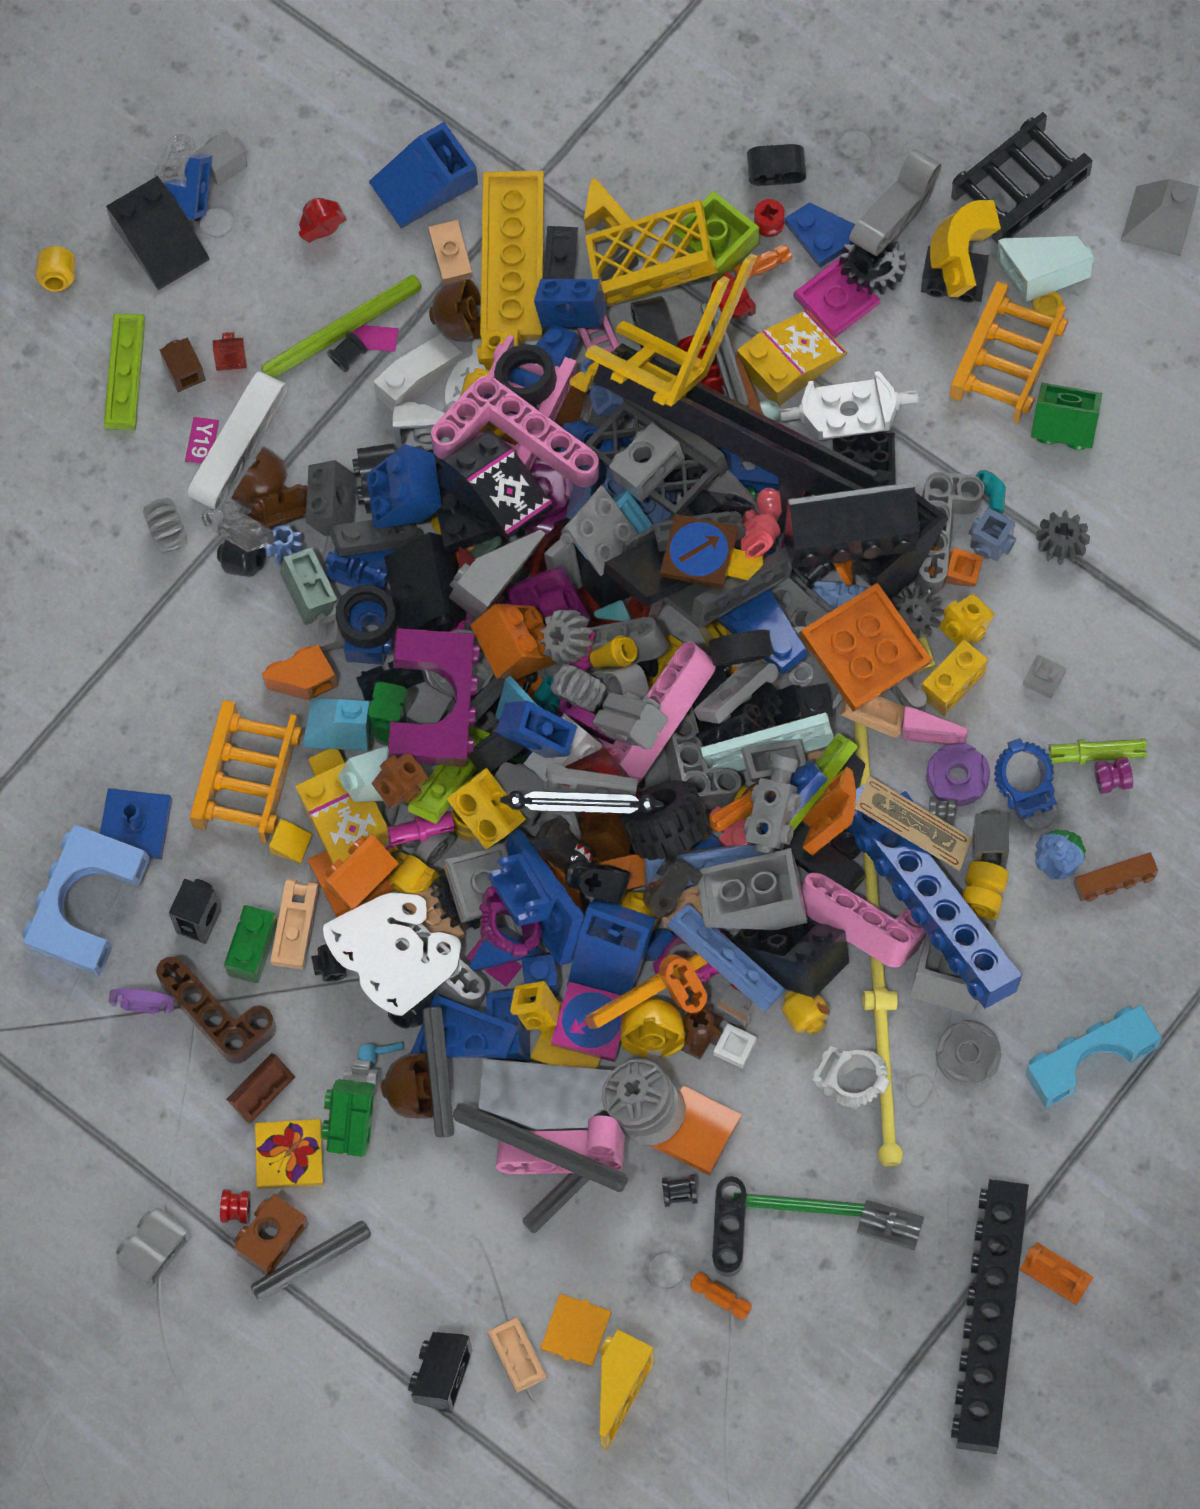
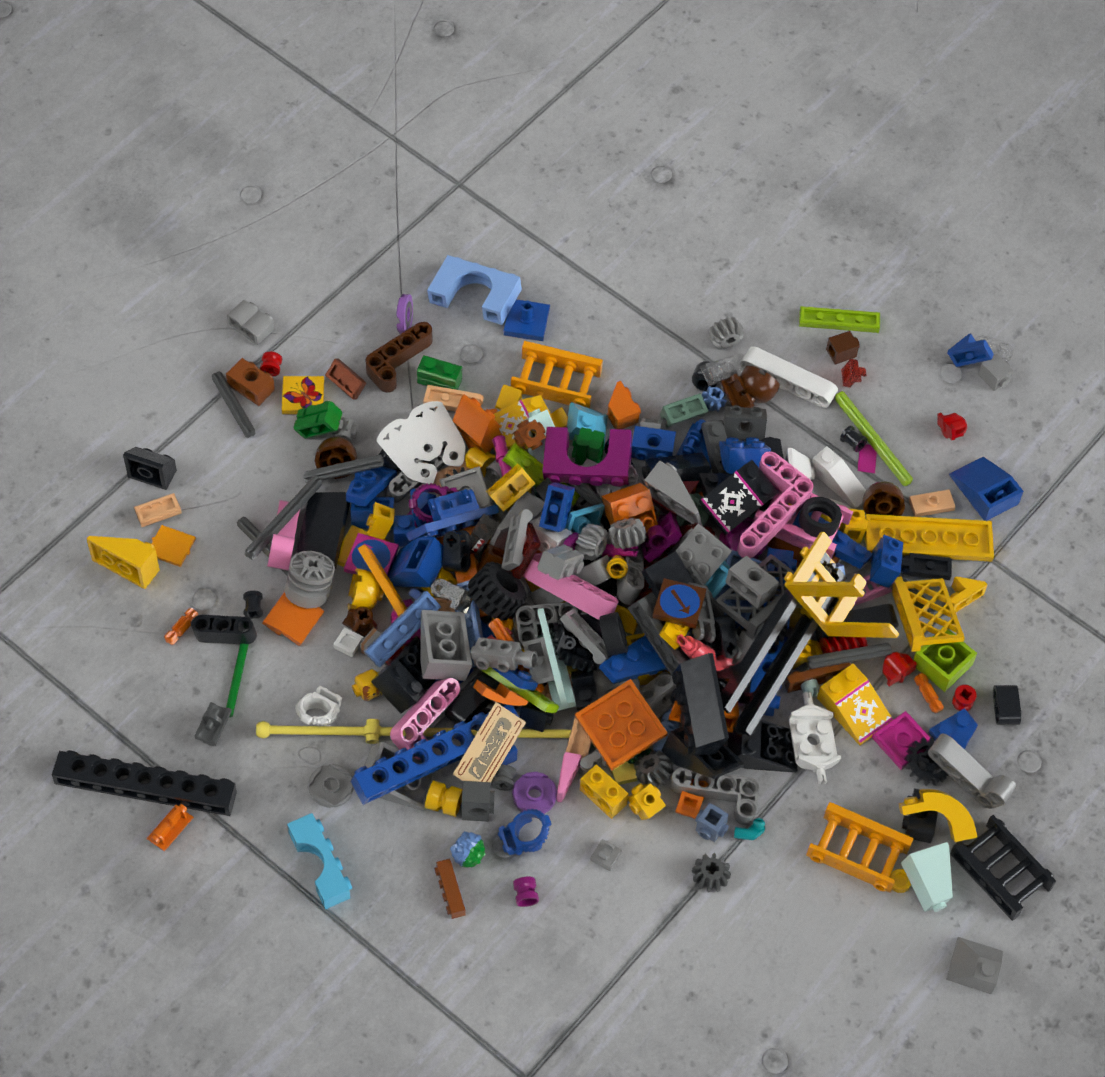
camera: 85 degrees right, 10 degrees down
(55, 268) = (910, 280): yellow head -> none
(157, 232) = (937, 334): black slope -> none
(195, 910) = (461, 342): black brick -> none
(201, 439) = (799, 361): dark pink sticker -> none
(366, 639) = (655, 448): black tyre -> none
(369, 1051) = (362, 437): medium azure hand -> none
(581, 802) = (505, 533): wheel -> none
(688, 980) = (386, 603): orange beam -> none
(1066, 416) = (809, 882): green slope -> none
(1095, 751) = (546, 876): lime pin -> none

